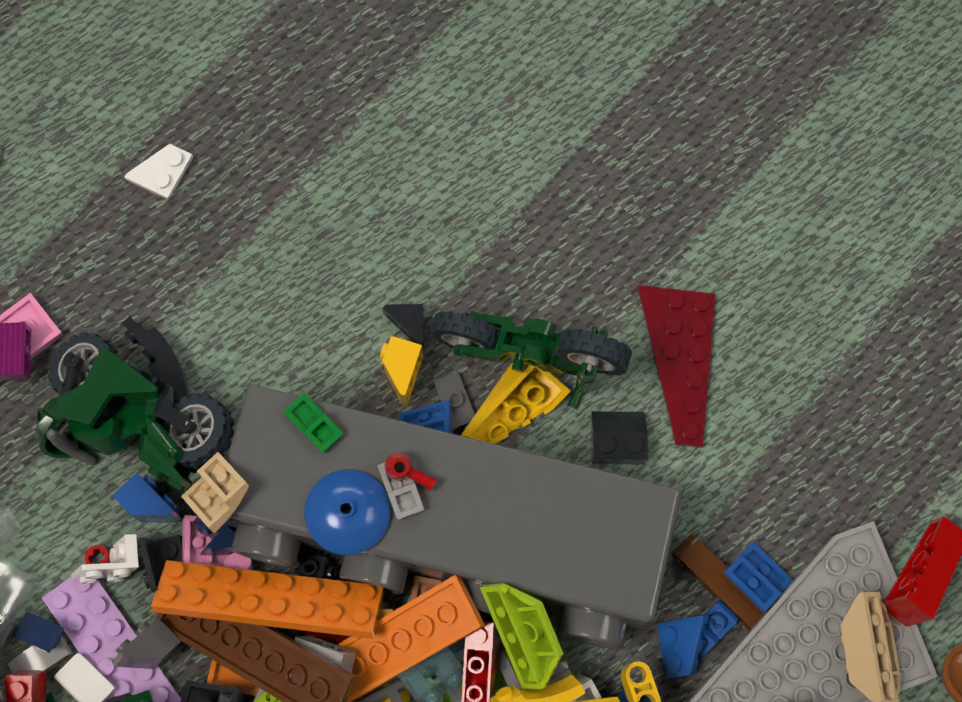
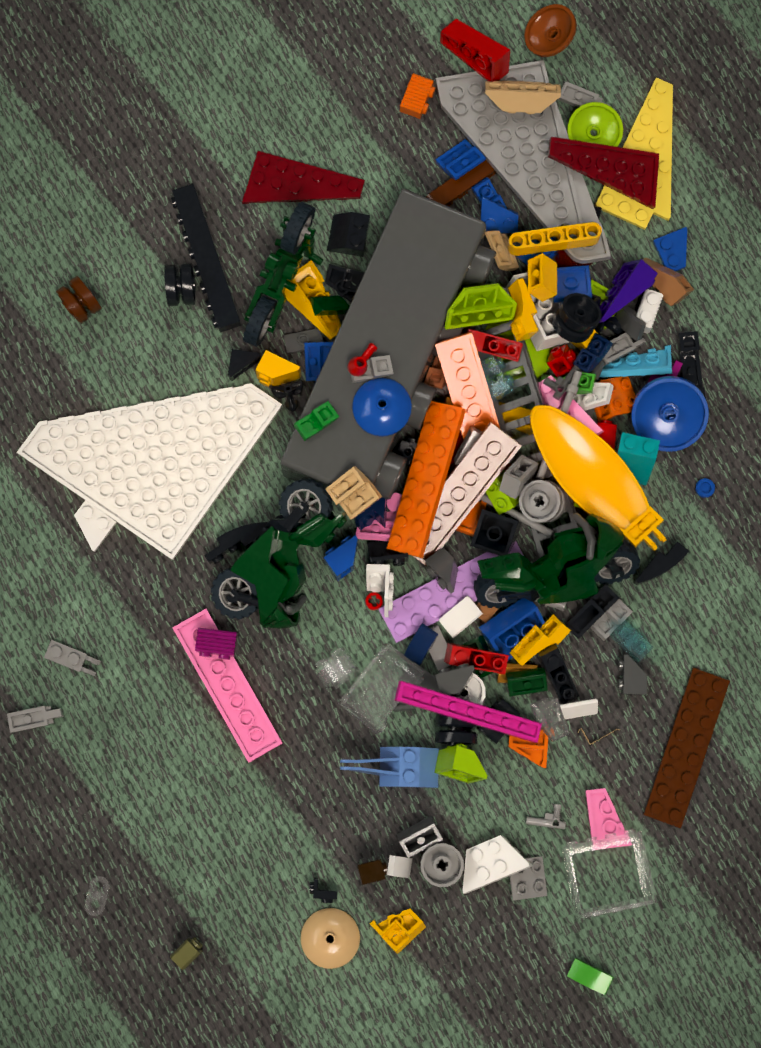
camera: 80 degrees left, 5 degrees up
(258, 235) = (155, 461): none -> white plate
(377, 383) = (288, 391): none -> black plant
(457, 95) = (78, 300): none -> reddish brown wheel
(501, 220) = (183, 284): none -> black wheel
(508, 423) = (329, 305): none -> dark green slope
(547, 250) = (206, 258): none -> black brick
(553, 437) = (341, 280): none -> black slope
(637, 648) = (499, 243): none -> tan slope
(841, 500) = (416, 96): none -> orange brick

